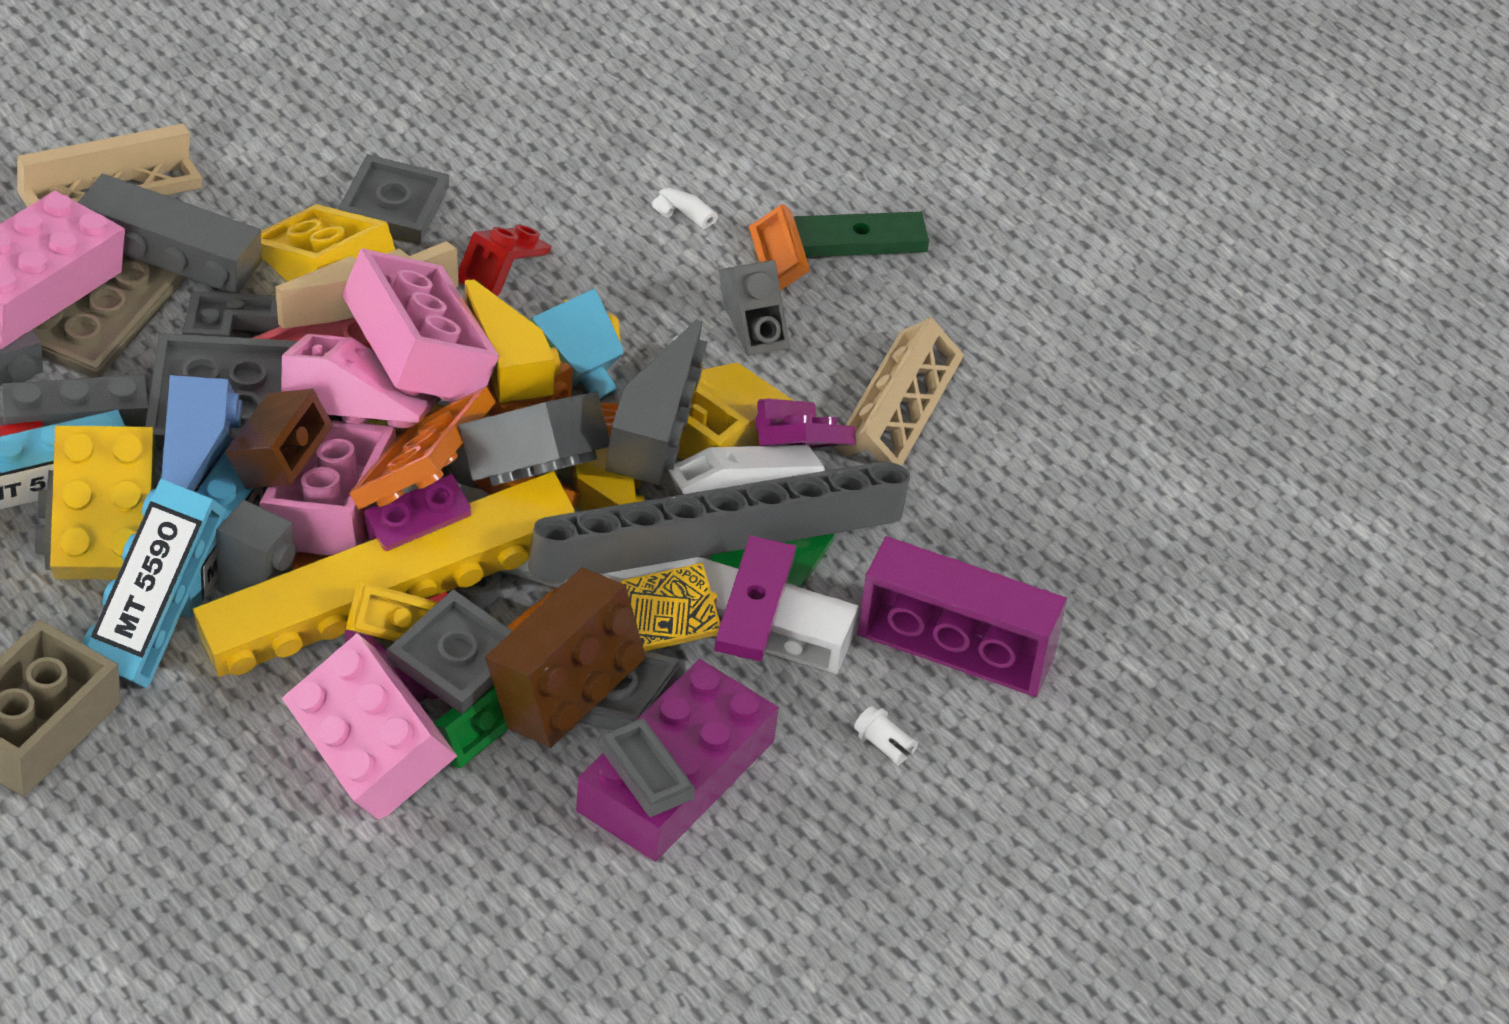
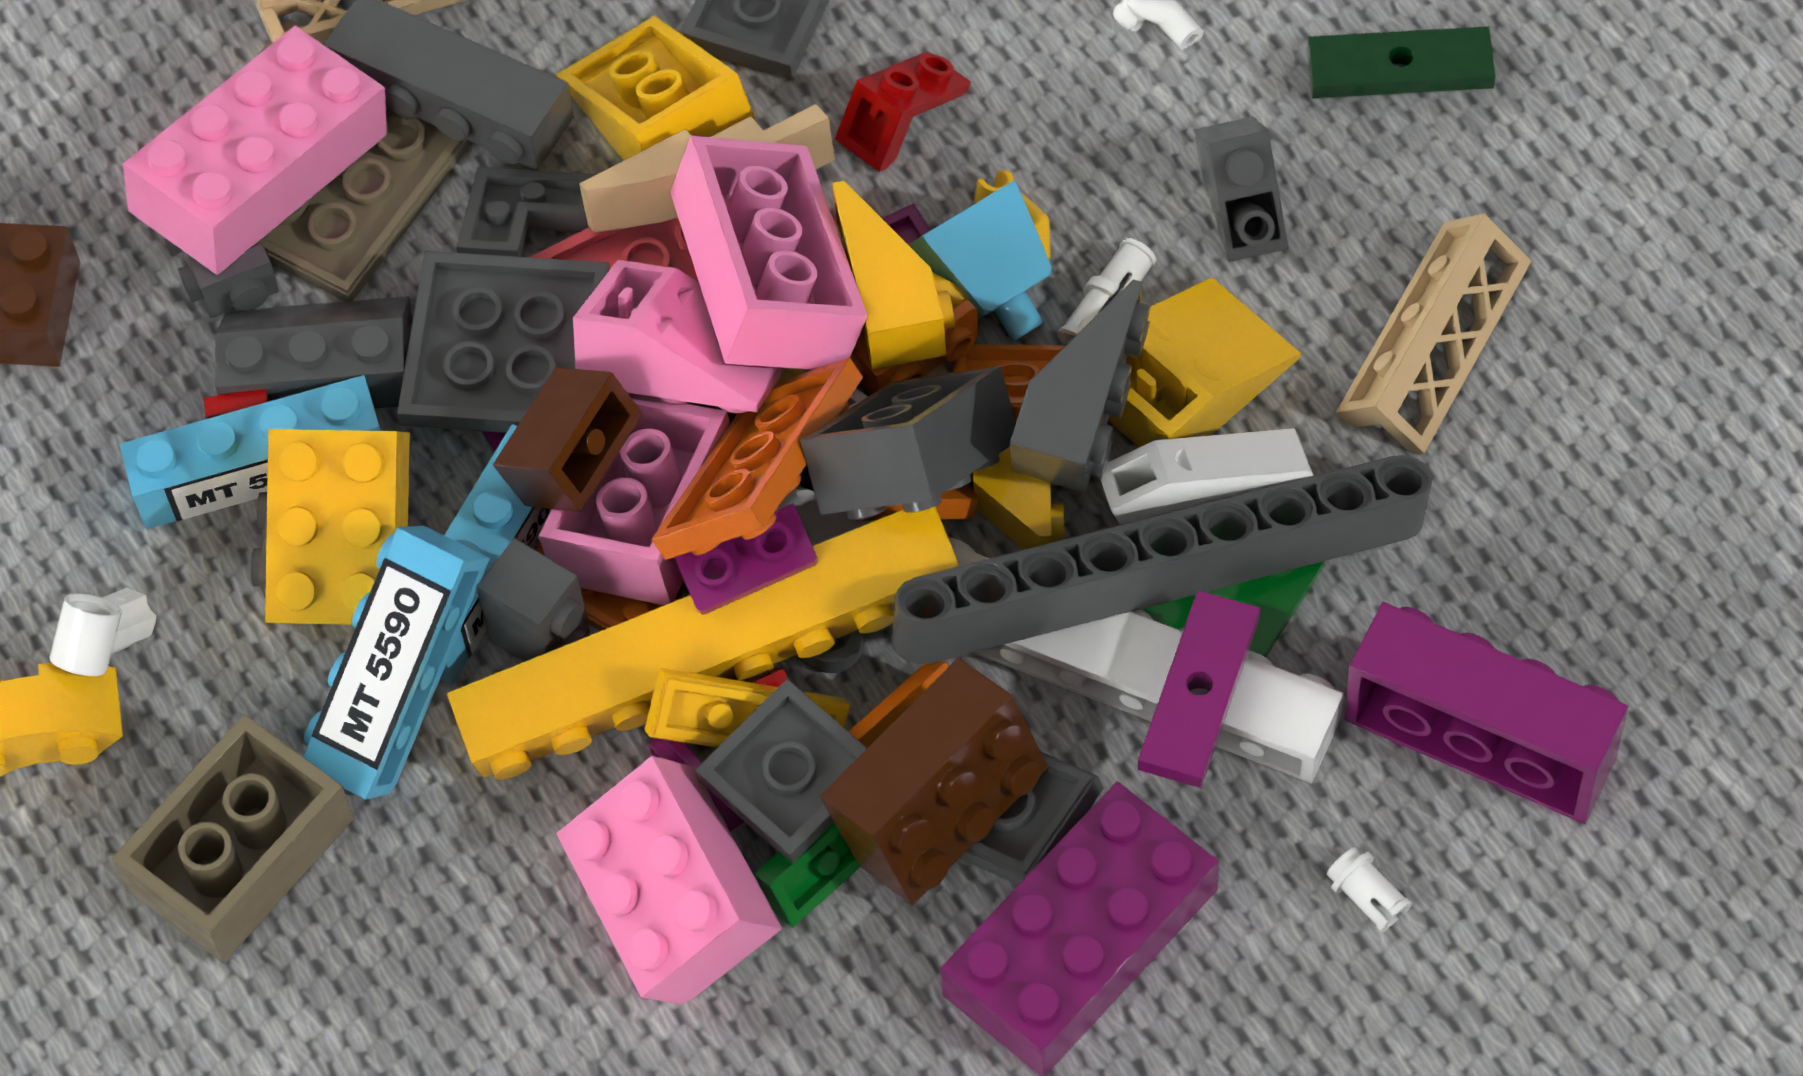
camera: 15 degrees right, 15 degrees up
(197, 427) = (456, 426): medium blue slope -> none
(646, 767) = (1029, 964): dark grey tile -> none
(673, 606) = (1085, 693): yellow piece -> none
(779, 240) = (1284, 86): orange tile -> none
(796, 424) = (1282, 399): magenta bracket -> none

